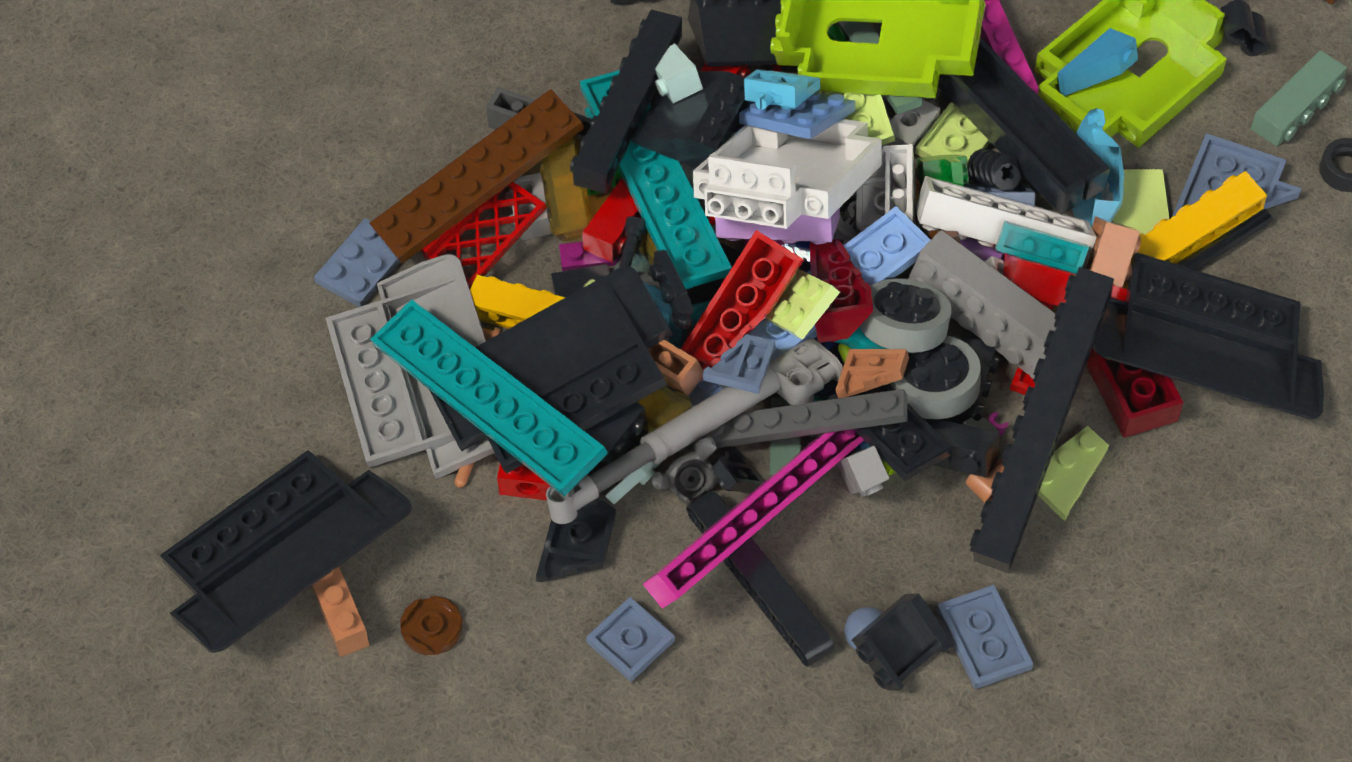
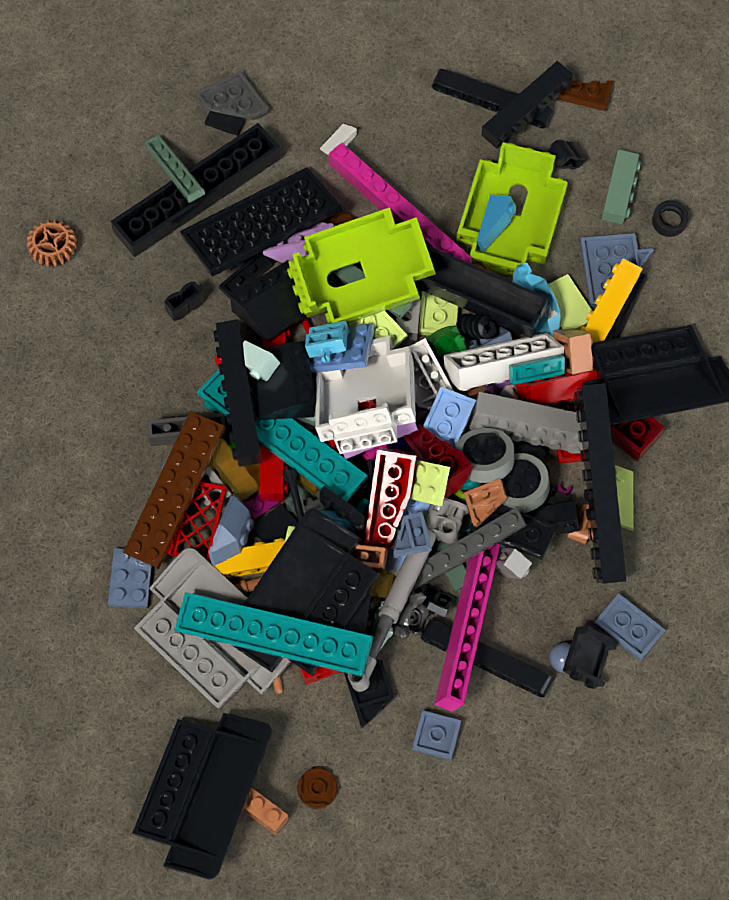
camera: 30 degrees left, 10 degrees up
(515, 255) = (231, 531): none -> sand blue wedge

